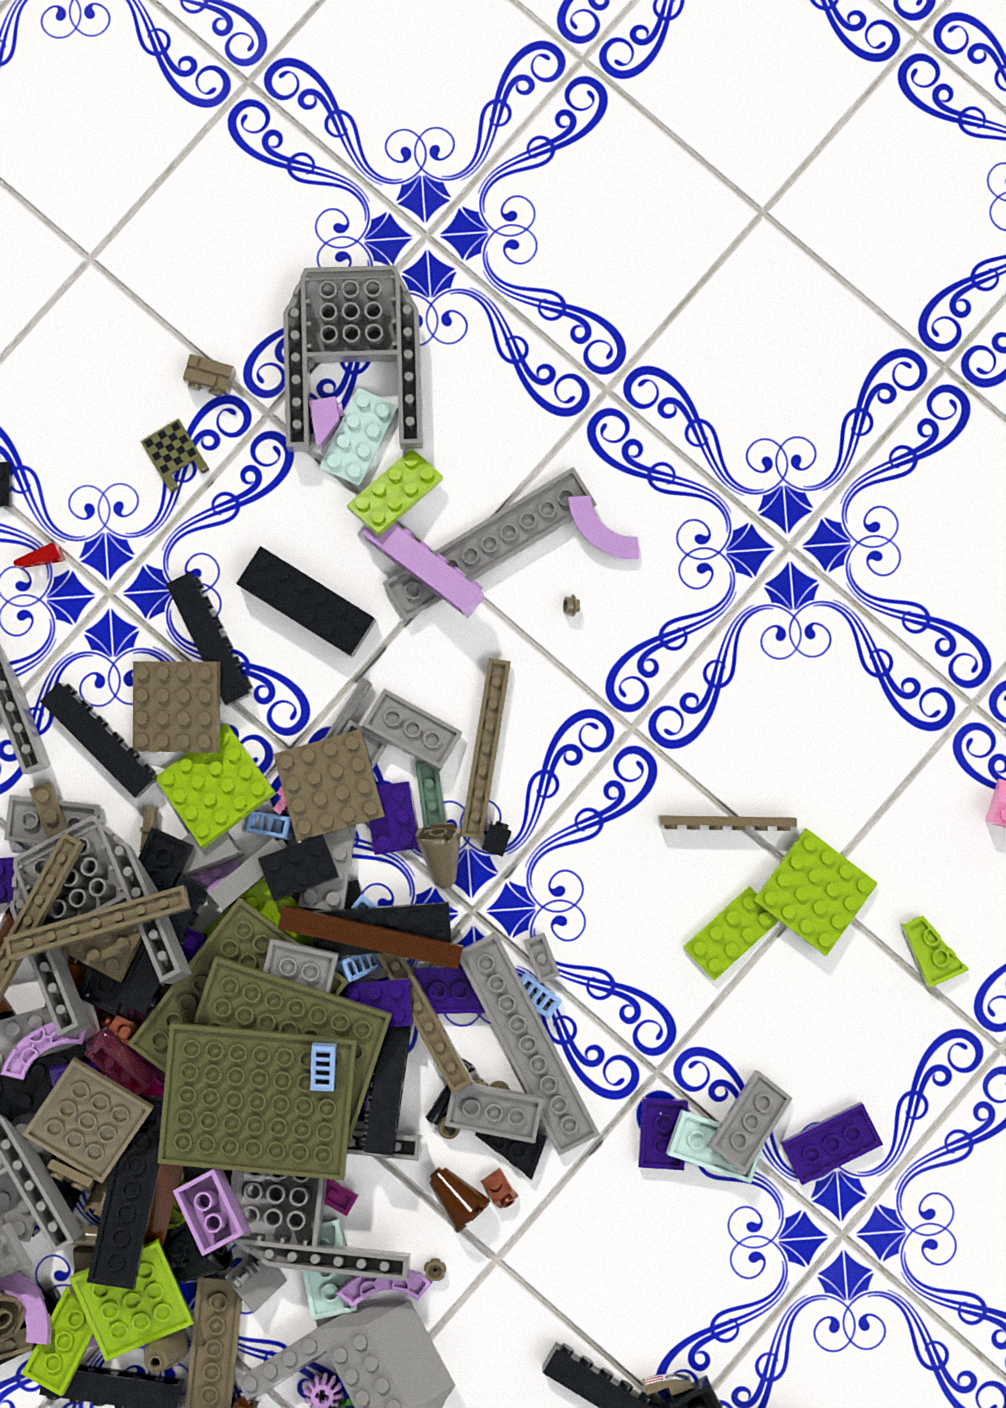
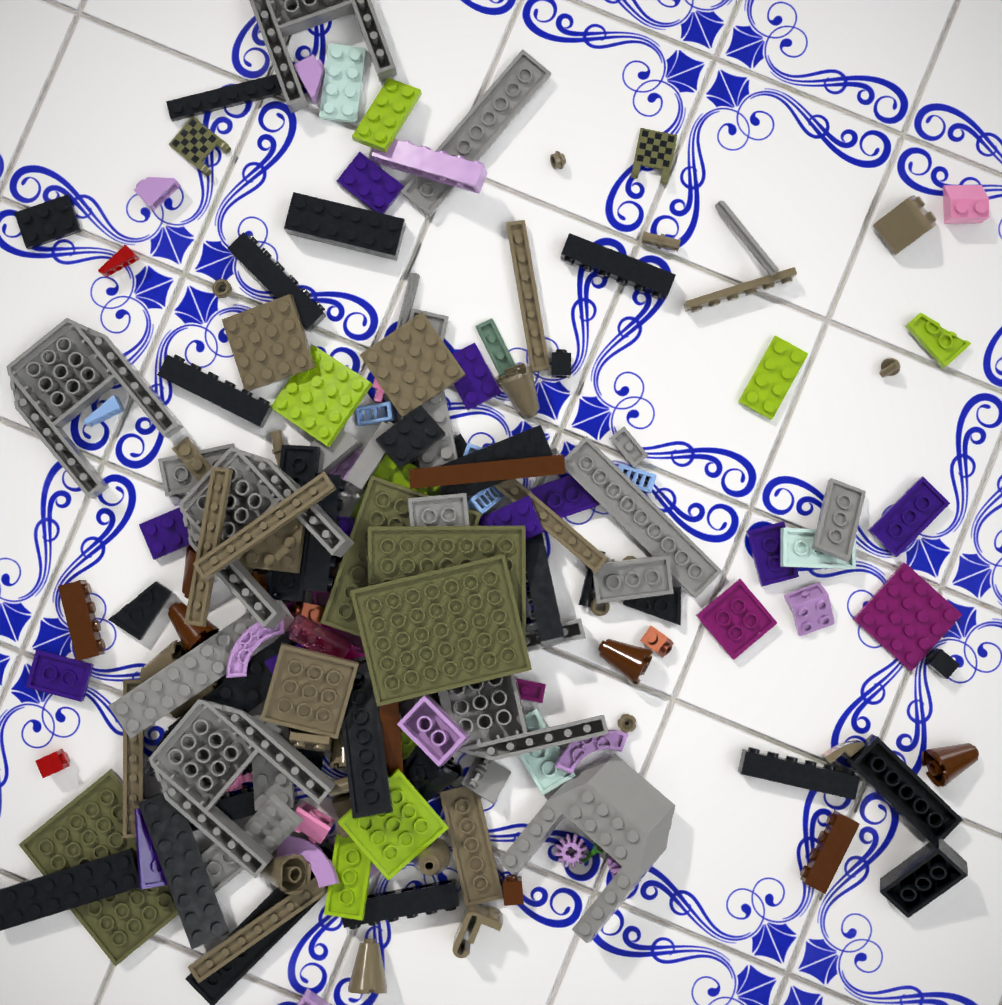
camera: 20 degrees left, 0 degrees up
(46, 1266) = (314, 823): none -> bright pink slope
(107, 491) = (156, 190): none -> lavender slope
(138, 625) = (216, 286): none -> dark tan plate
(209, 375) = (206, 72): dark tan brick -> none
(219, 409) = (223, 98): none -> black plate
(323, 1048) = (480, 567): light blue slope -> none
(351, 562) = (370, 184): none -> dark purple plate
(411, 729) = (463, 300): light grey plate -> none
(597, 533) = (561, 96): lavender tile -> none
(597, 1194) = (736, 619): none -> magenta plate
(598, 749) = (617, 266): none -> black brick
(656, 736) = (661, 241): none -> dark tan pin
(684, 631) = (654, 151): none -> olive flag
(684, 1209) = (810, 608): none -> lavender bracket
(753, 766) = (746, 238): none -> light grey axle
(791, 1255) = (907, 616): none -> magenta plate
(811, 1322) = (941, 663): none -> black brick
(815, 892) = (828, 322): lime plate -> none
(866, 965) = (889, 367): none -> dark tan plate
(940, 809) = (905, 224): none -> dark tan piece

